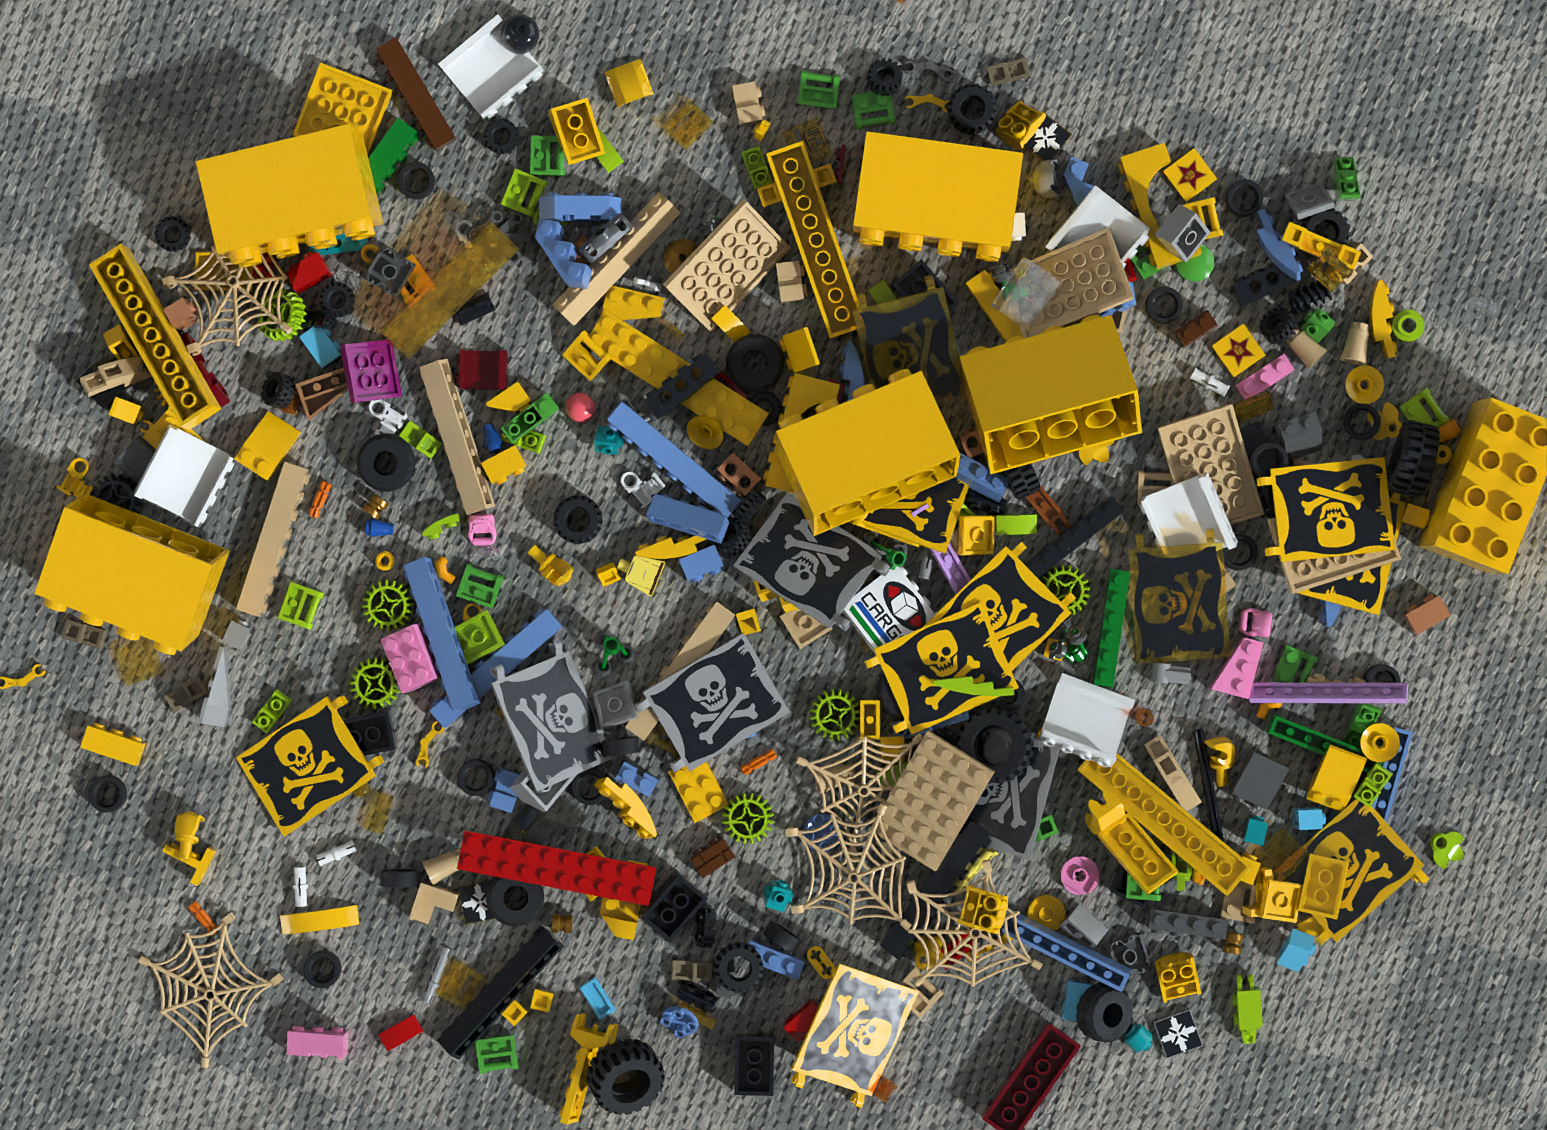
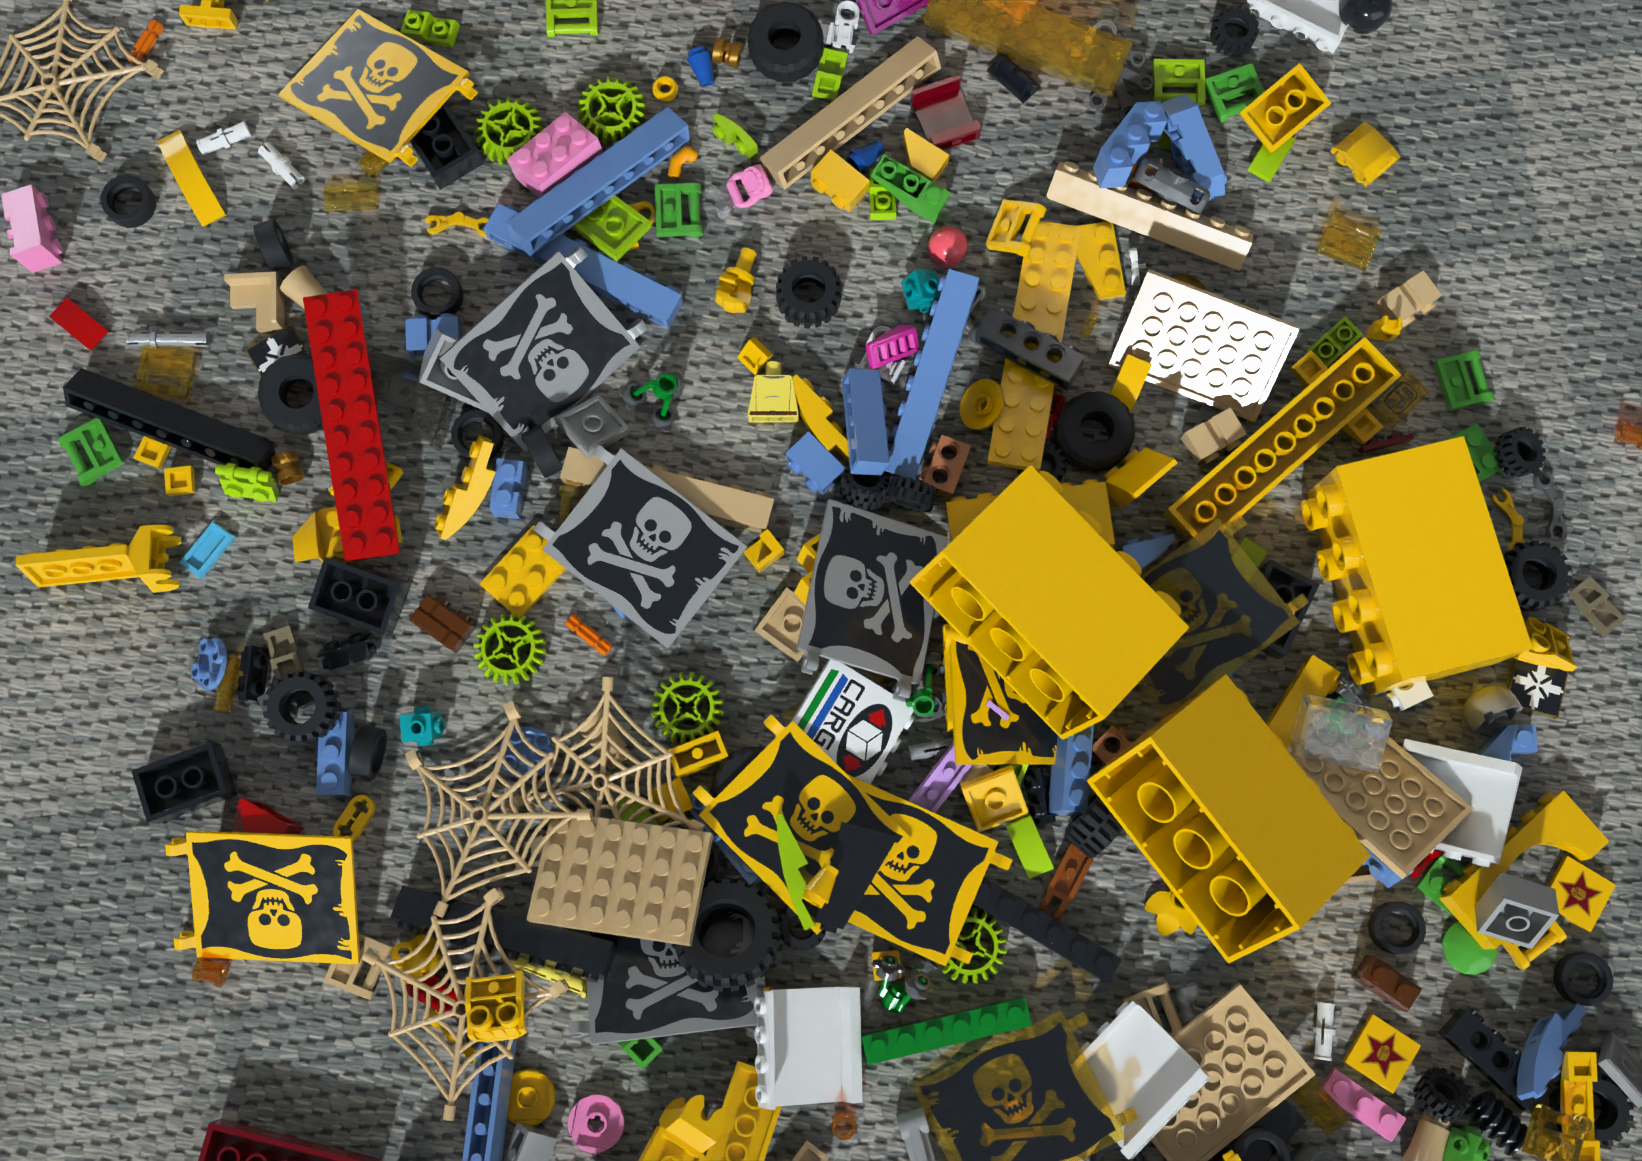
camera: 70 degrees right, 10 degrees down
(567, 948) = (247, 483): none -> lime plate
(633, 1093) = (83, 628): black tyre -> none
(642, 466) = (907, 345): none -> dark pink slope
(986, 648) = (857, 858): none -> black slope
(991, 674) = (820, 887): none -> yellow cone

